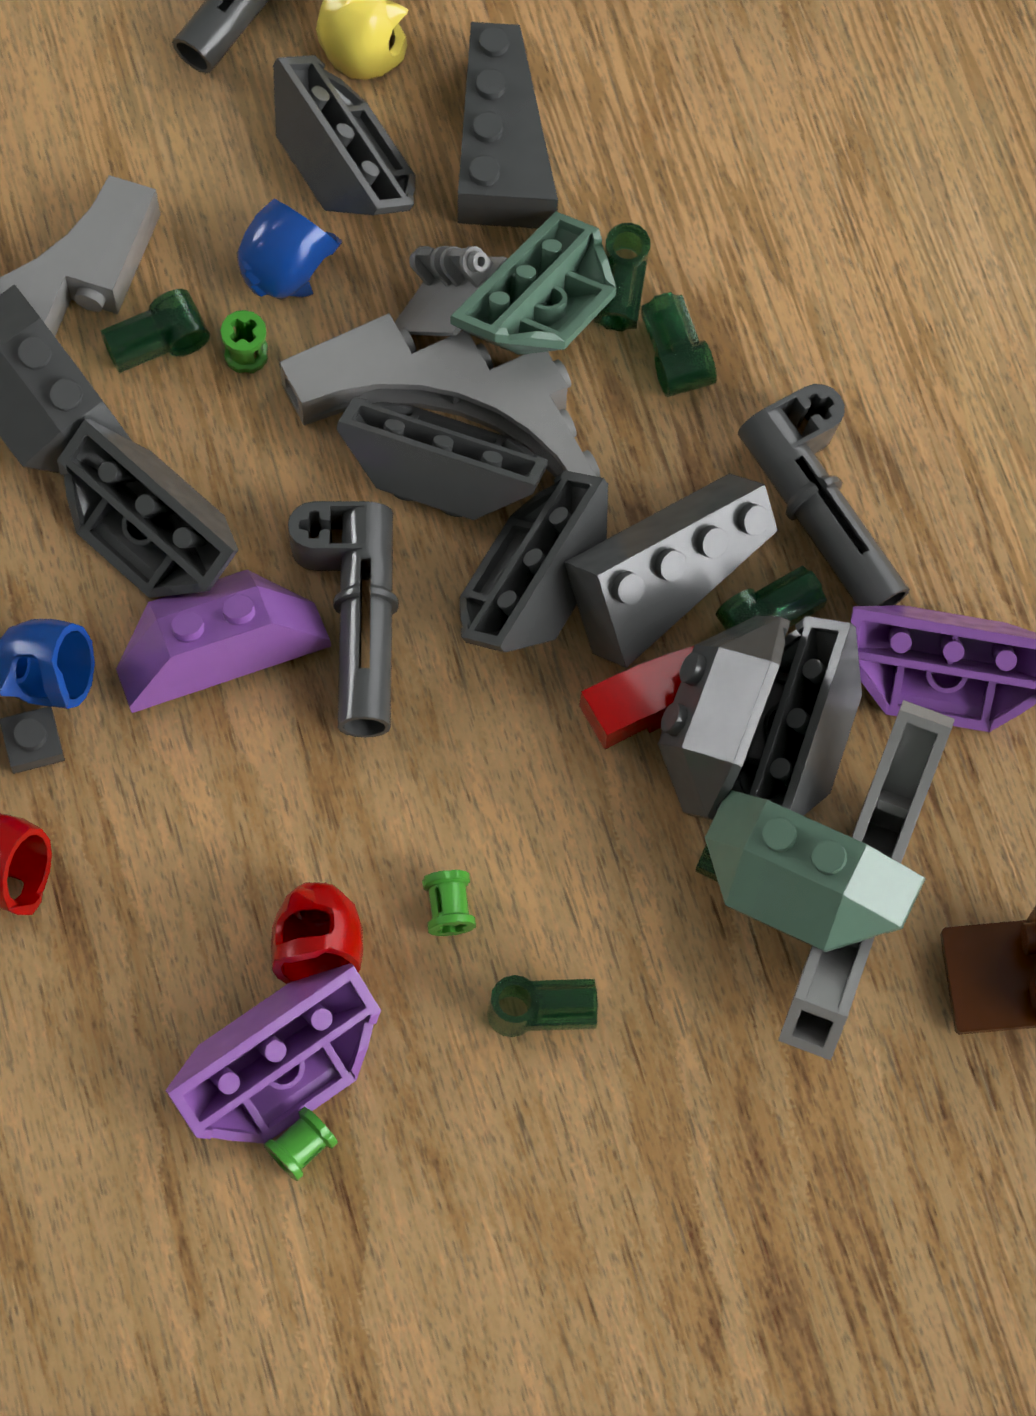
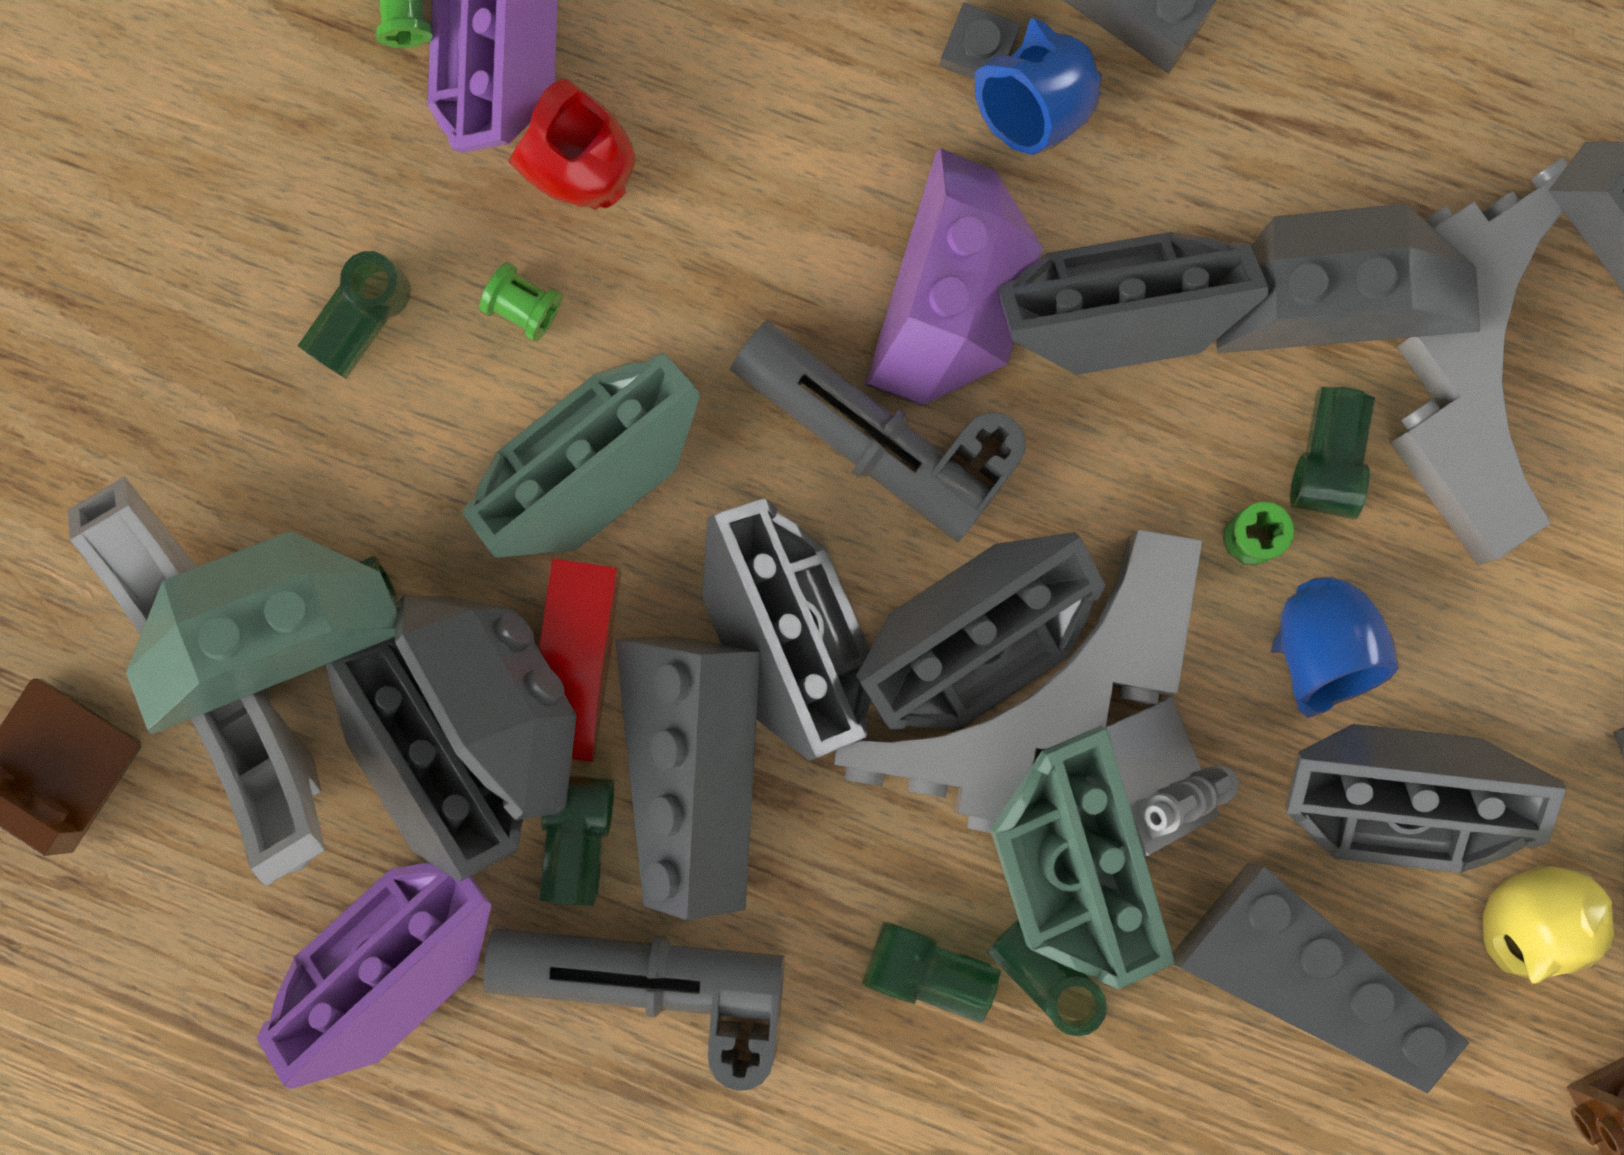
camera: 130 degrees right, 15 degrees up
(522, 779) = (585, 460): none -> sand green wedge

